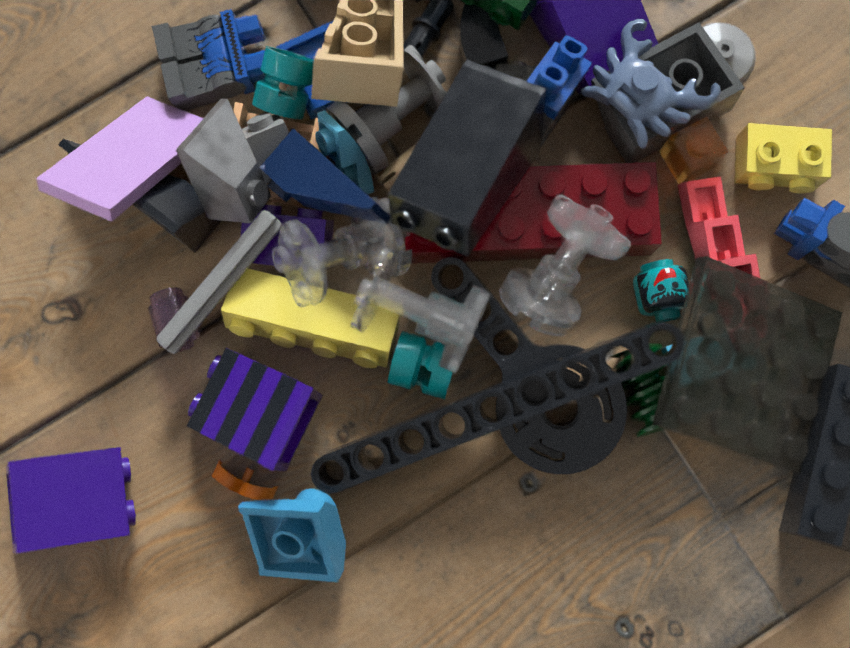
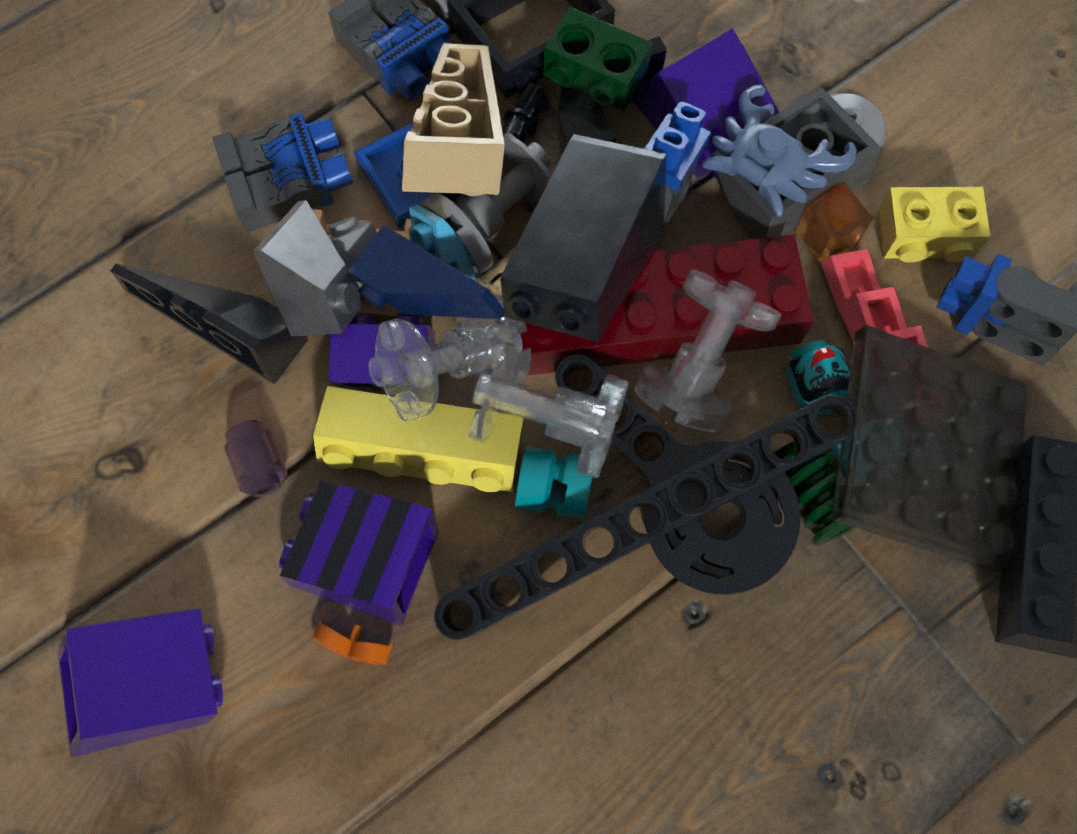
camera: 10 degrees left, 10 degrees down
(121, 159) = (185, 278): lavender tile -> none
(219, 282) = (308, 404): light grey axle -> none
(288, 68) = (370, 167): teal wheel -> none
(297, 536) = (422, 697): dark azure slope -> none

